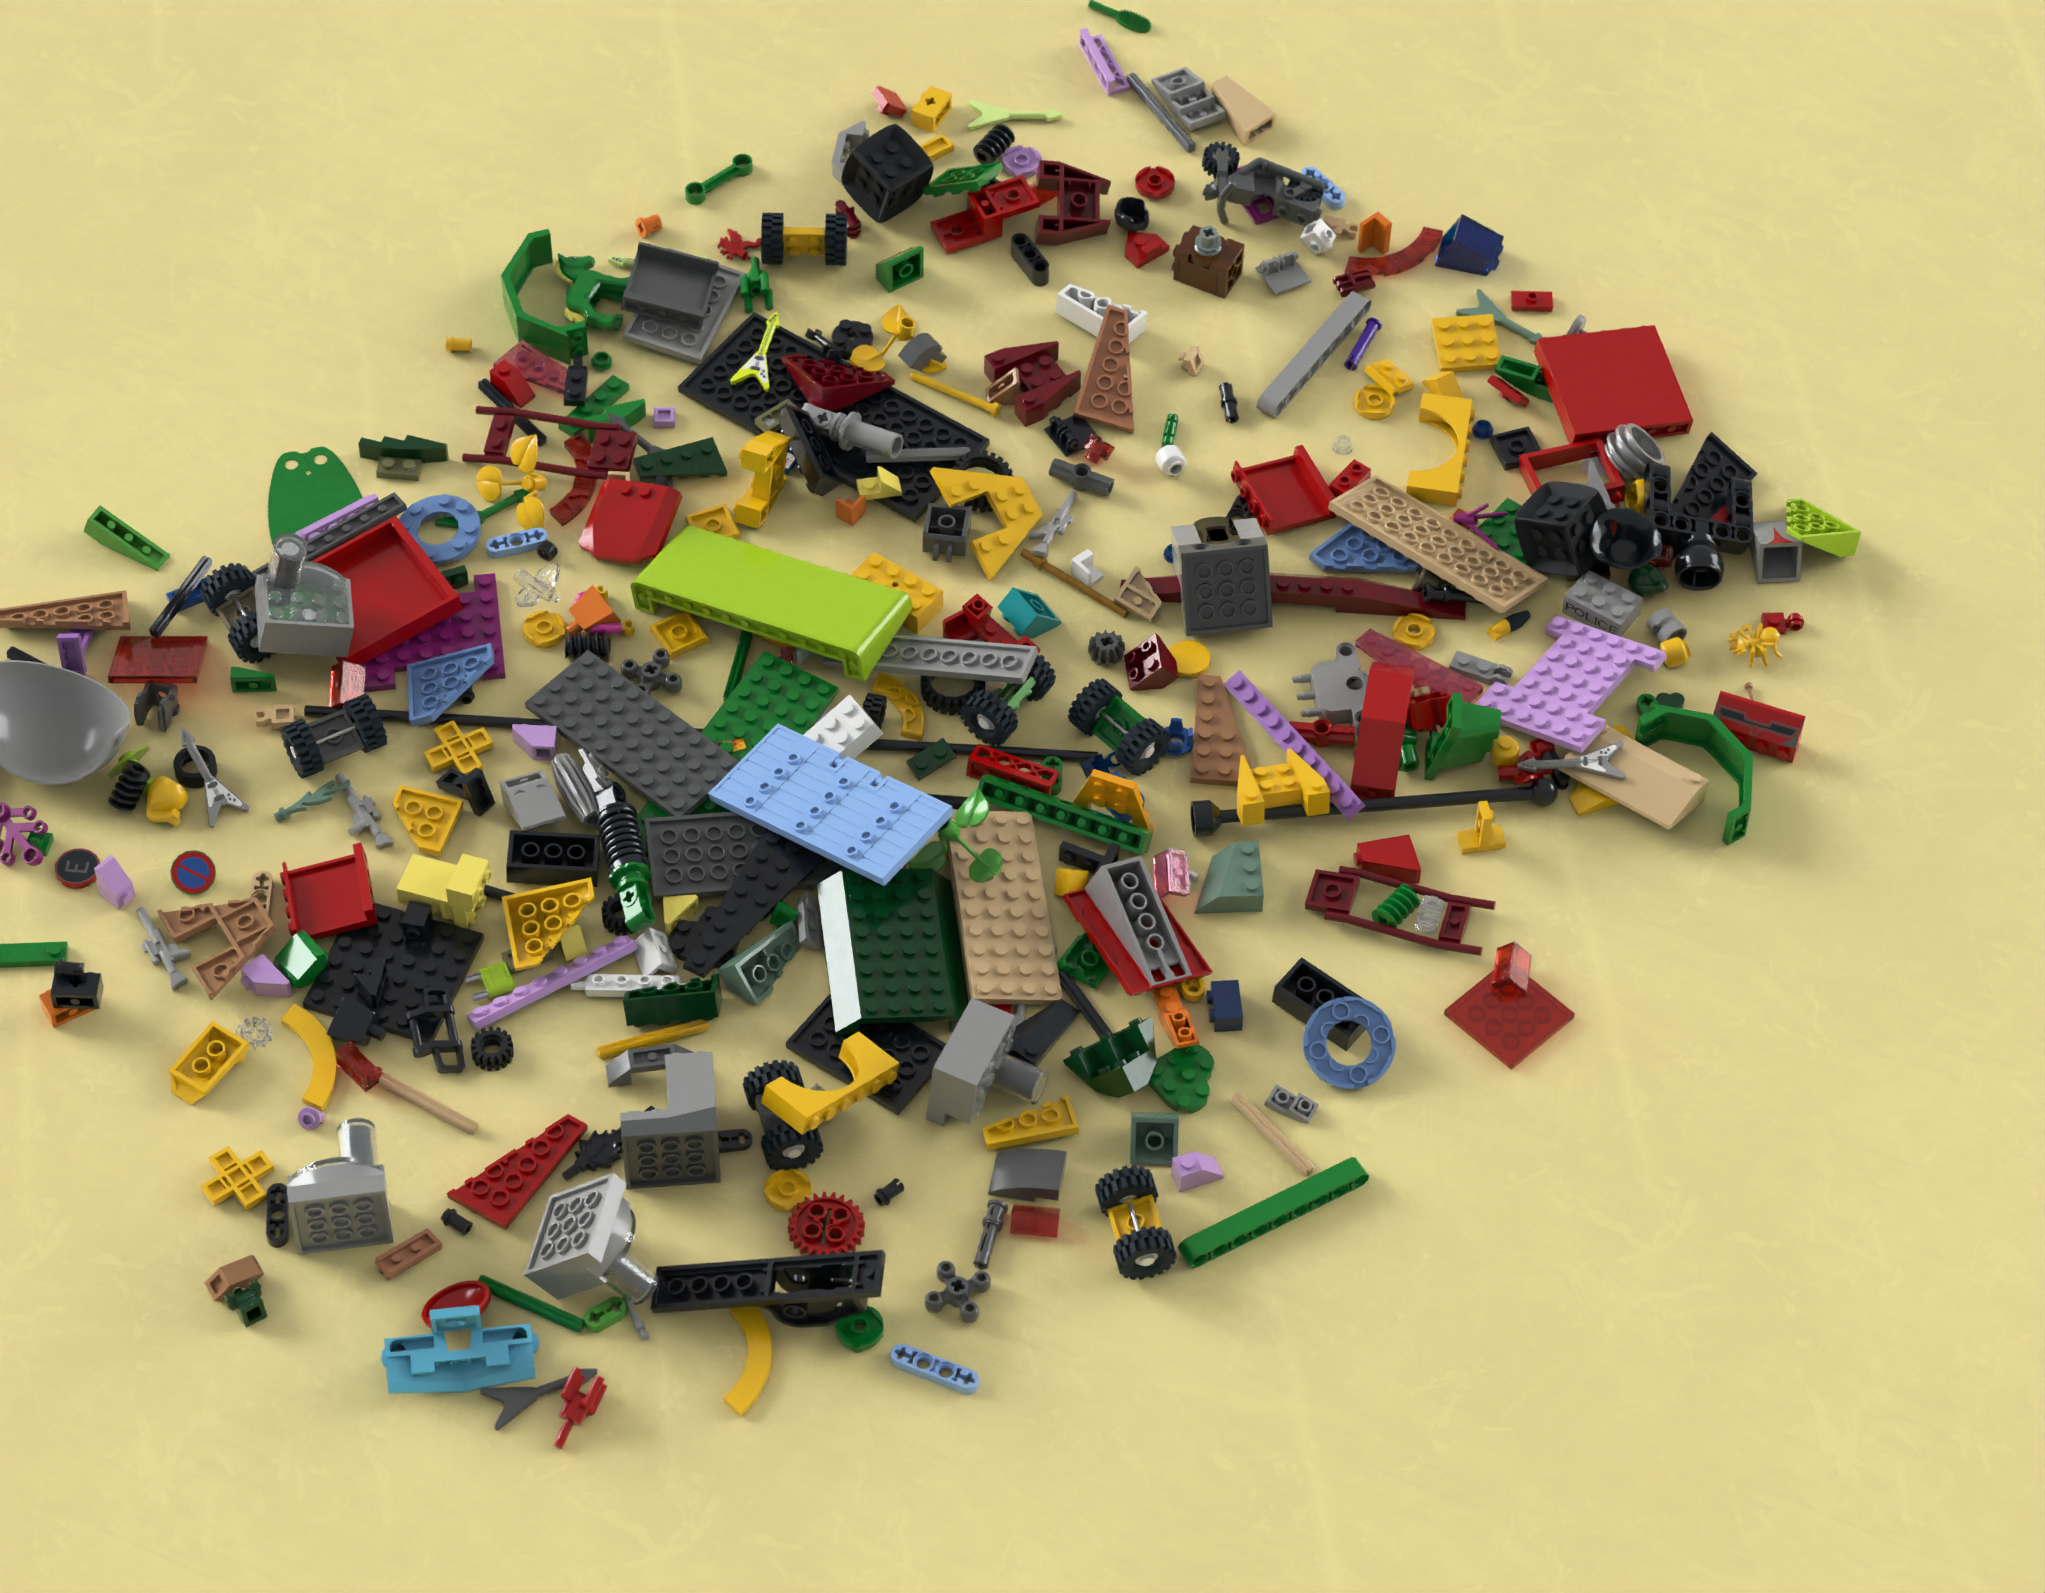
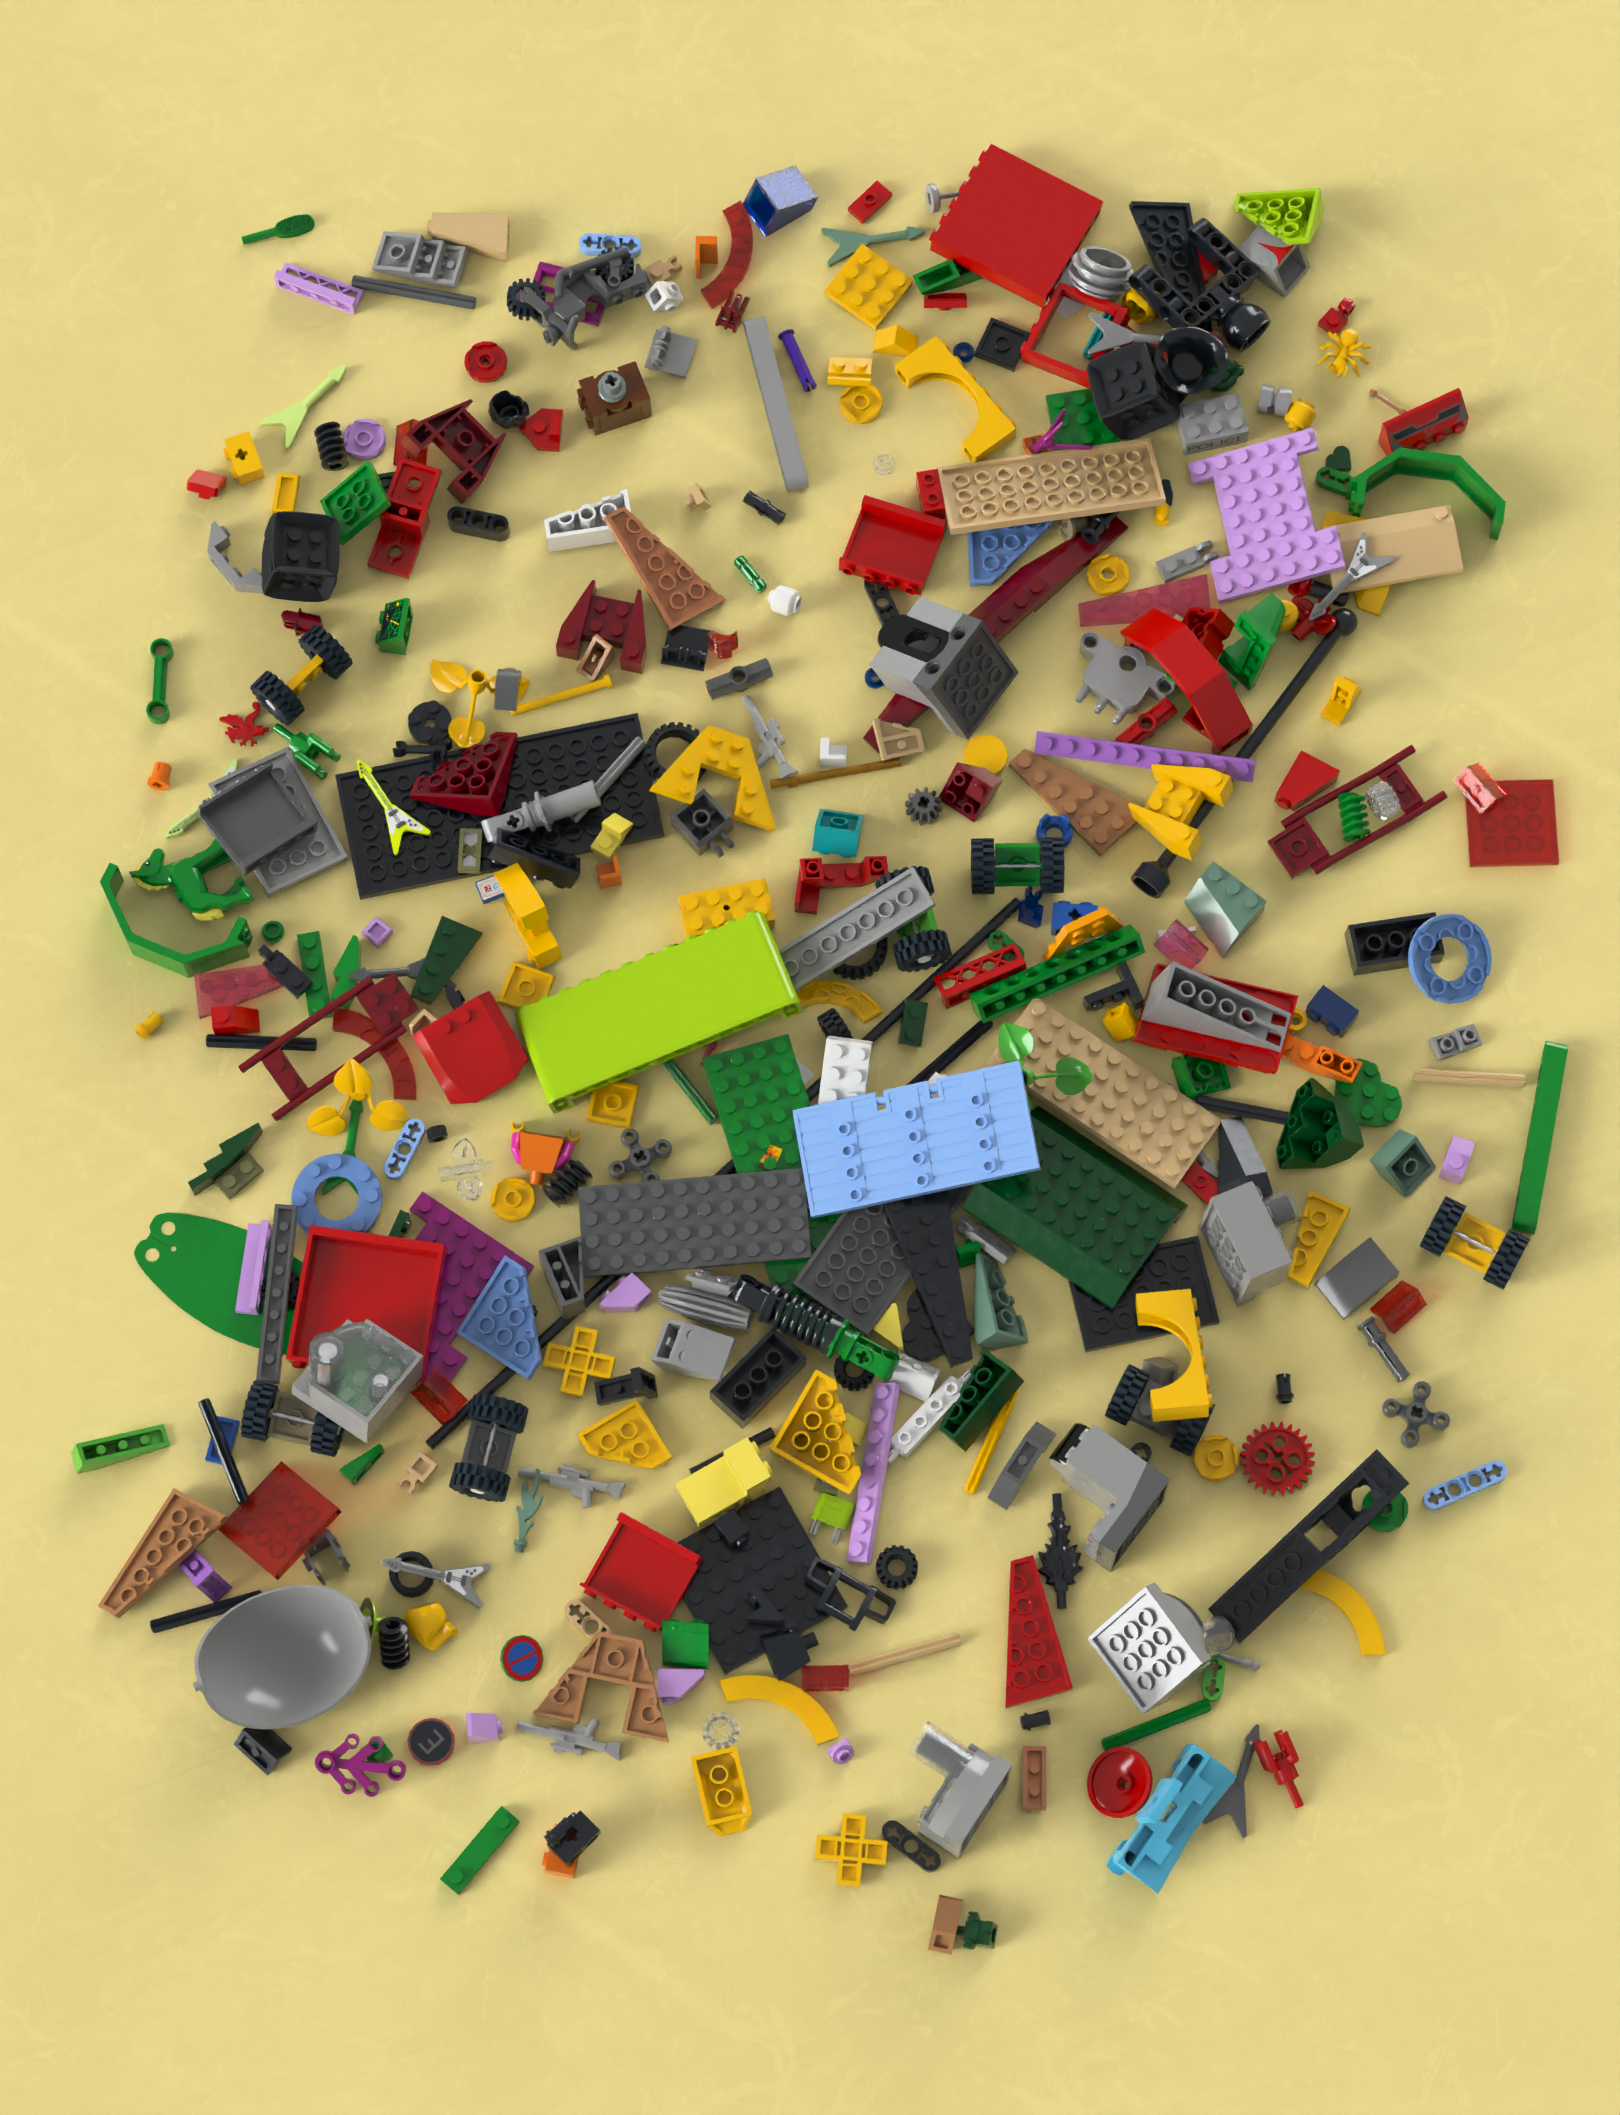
camera: 45 degrees left, 20 degrees up
(511, 691) = (564, 1273): none -> dark grey wedge

